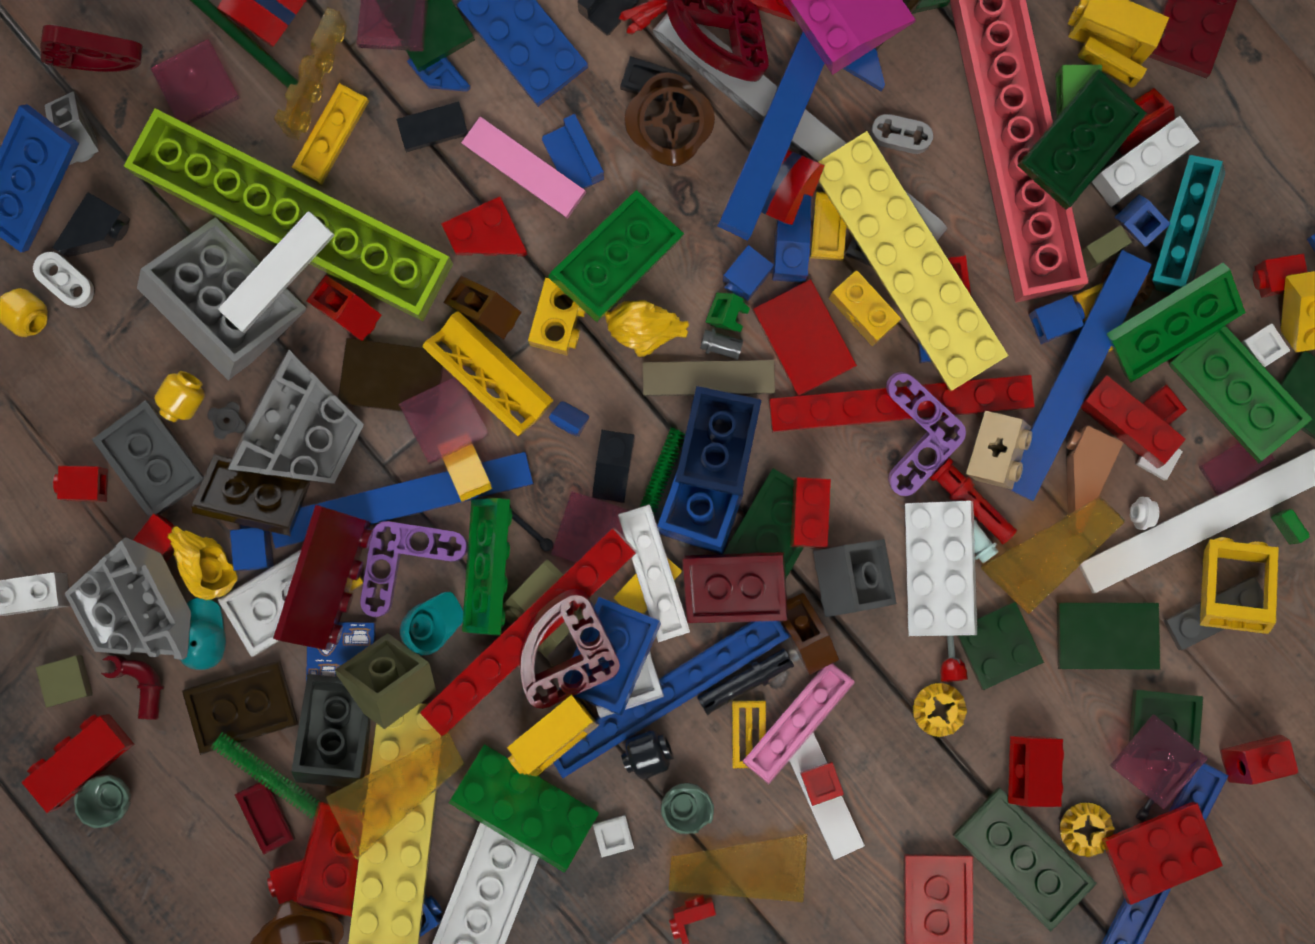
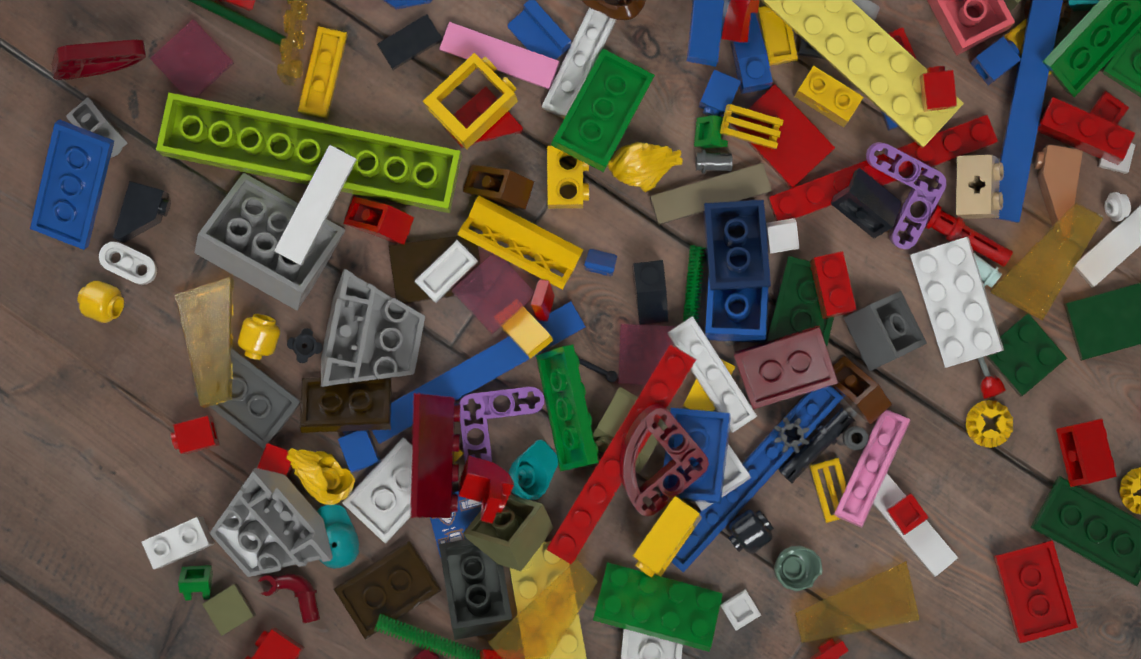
camera: 15 degrees left, 0 degrees up
(36, 639) = (195, 580): none -> green tile
(124, 383) = (208, 337): none -> clear yellow wing
(374, 623) = (486, 484): none -> red brick
(399, 382) = (446, 271): none -> white tile
(489, 230) = (488, 118): none -> yellow window
(494, 442) = (542, 300): none -> red tile
(616, 186) = (578, 62): none -> white tile
(729, 661) = (798, 432): none -> dark grey gear
(772, 444) = (782, 235): none -> white tile
(795, 330) = (774, 132): none -> yellow tile
(797, 687) = (862, 438): none -> dark grey pin
(874, 436) = (867, 204): none -> black panel
(983, 332) = (938, 89): none -> red brick

